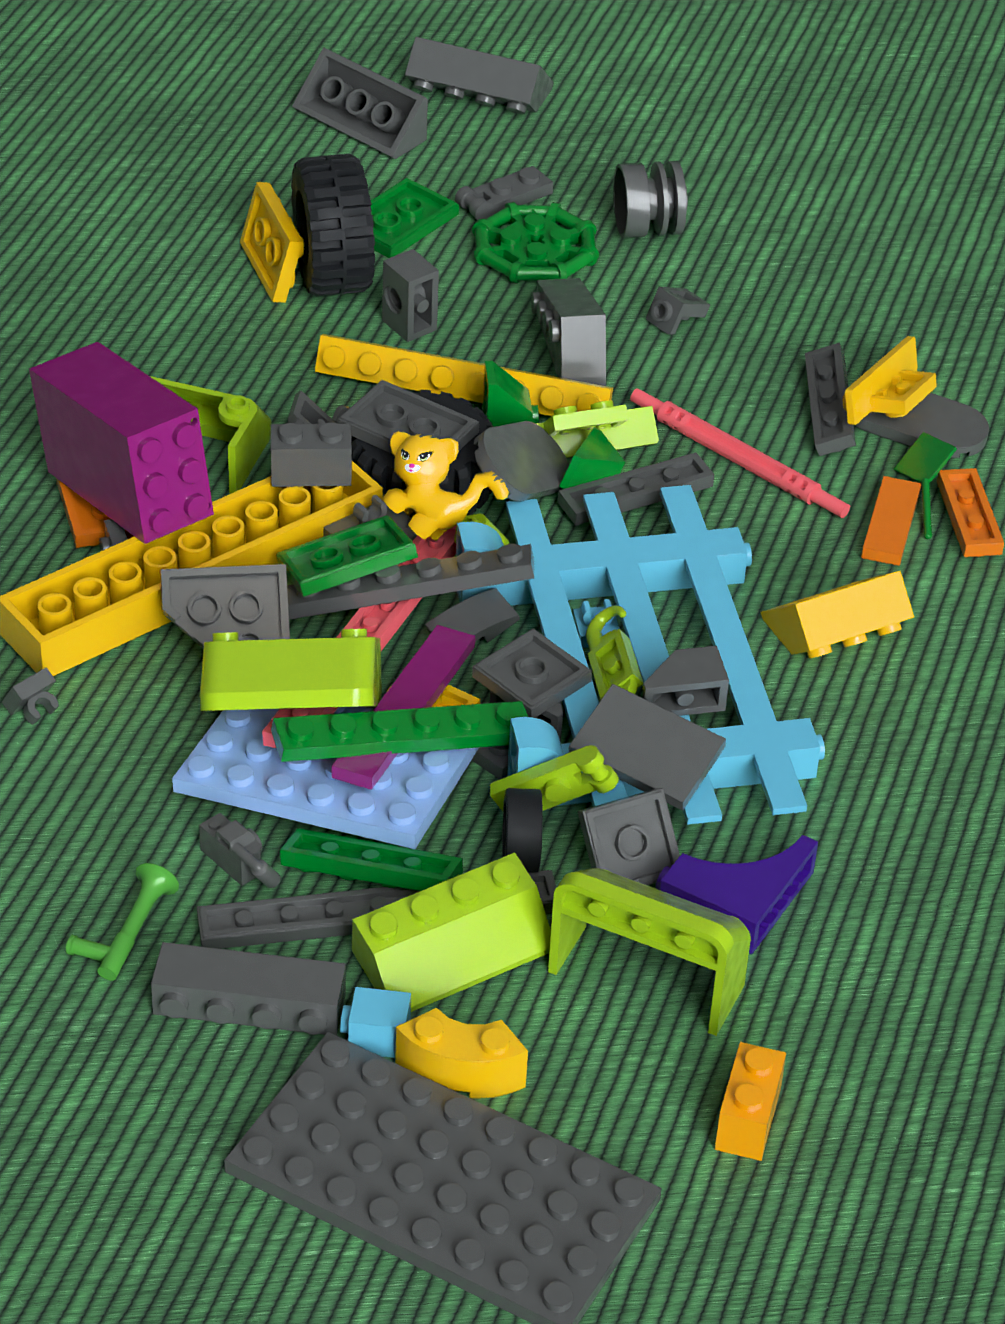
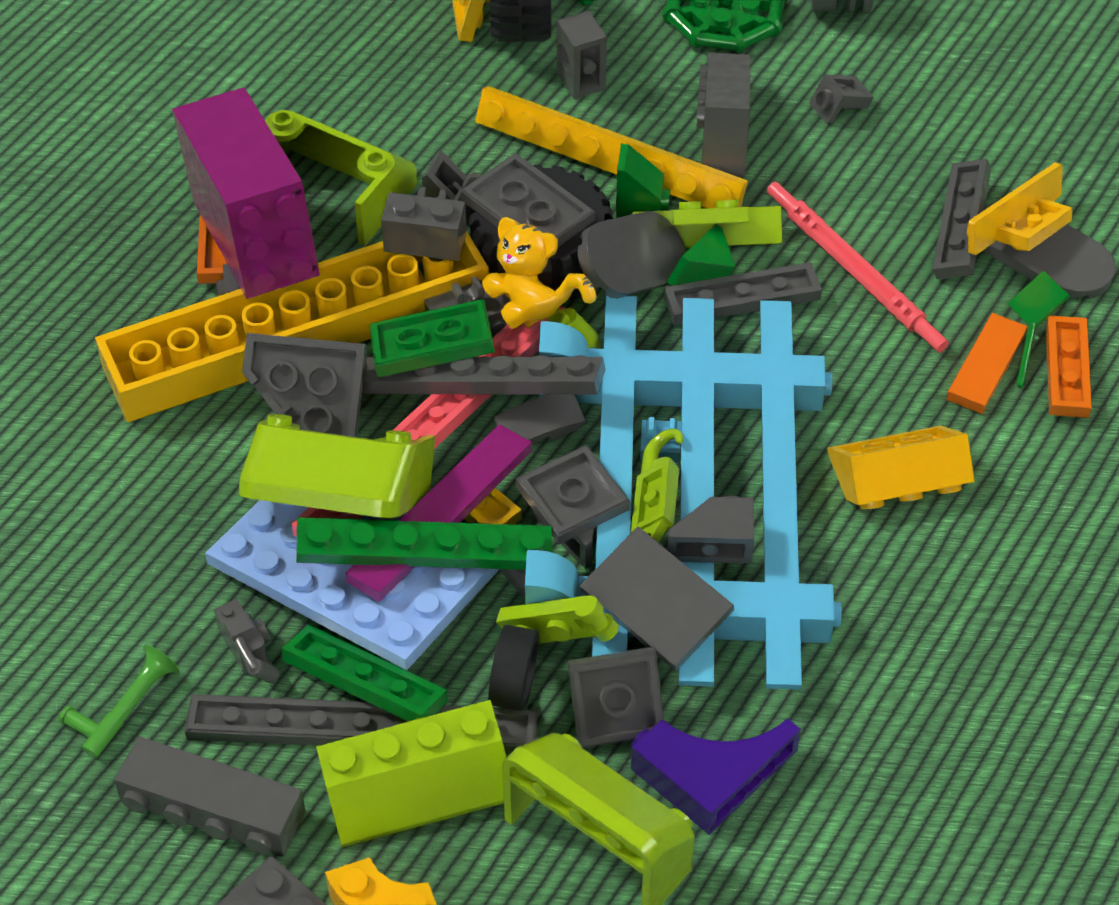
camera: 15 degrees right, 10 degrees up
(31, 692) = (106, 437): dark grey tile -> none
(374, 1018) = (317, 850): medium azure brick -> none

